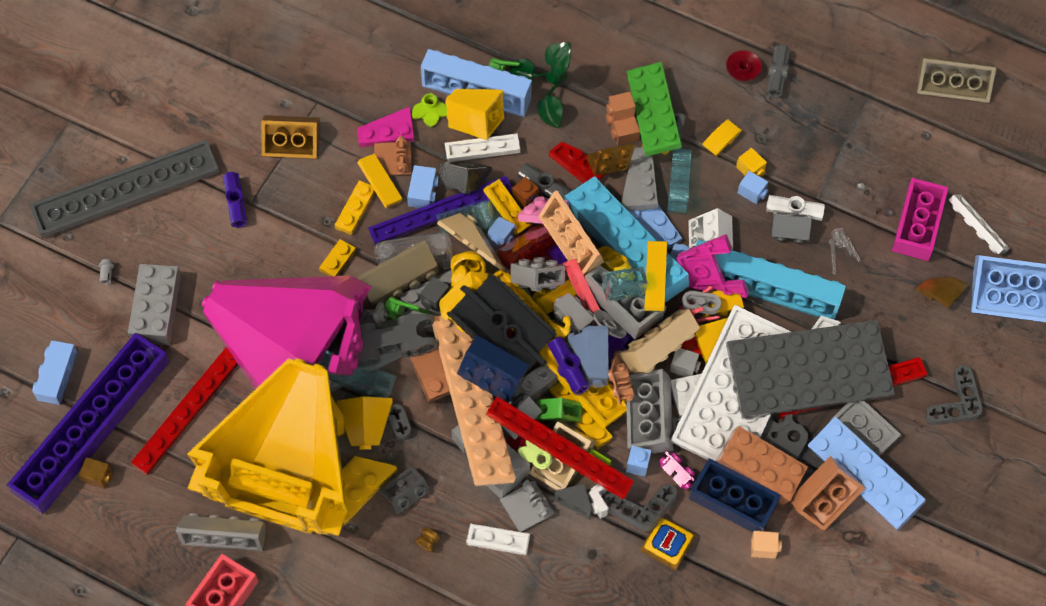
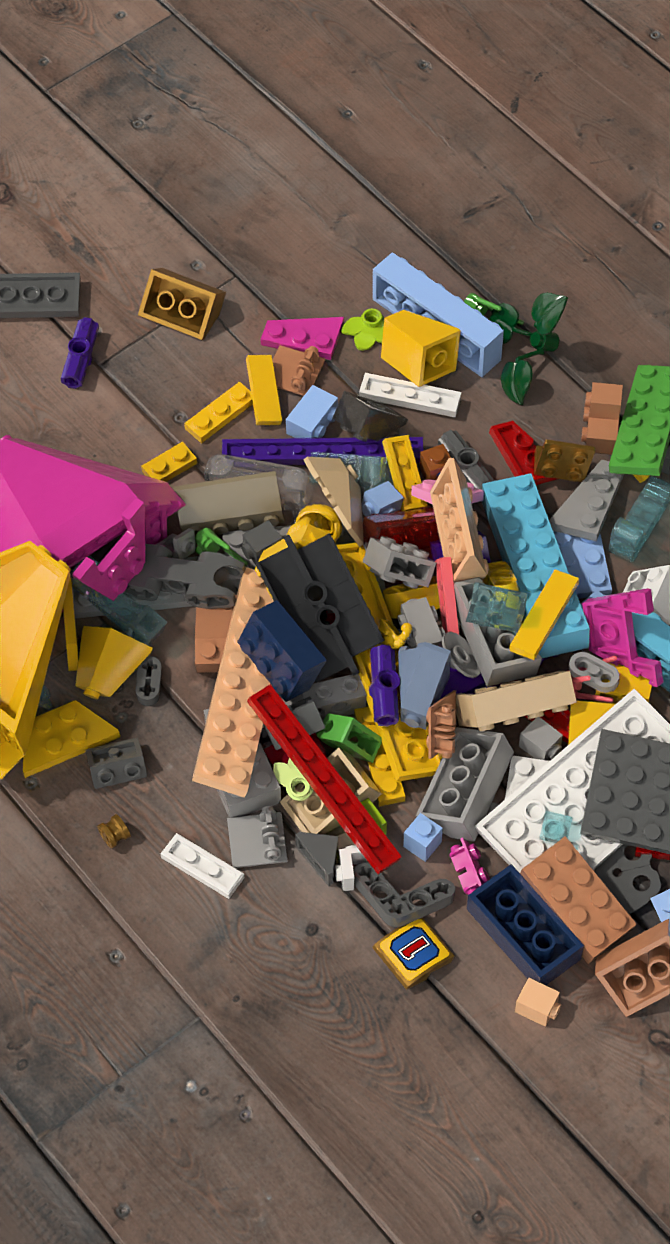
camera: 25 degrees right, 5 degrees down
(724, 420) = (555, 827): none -> clear light blue tile

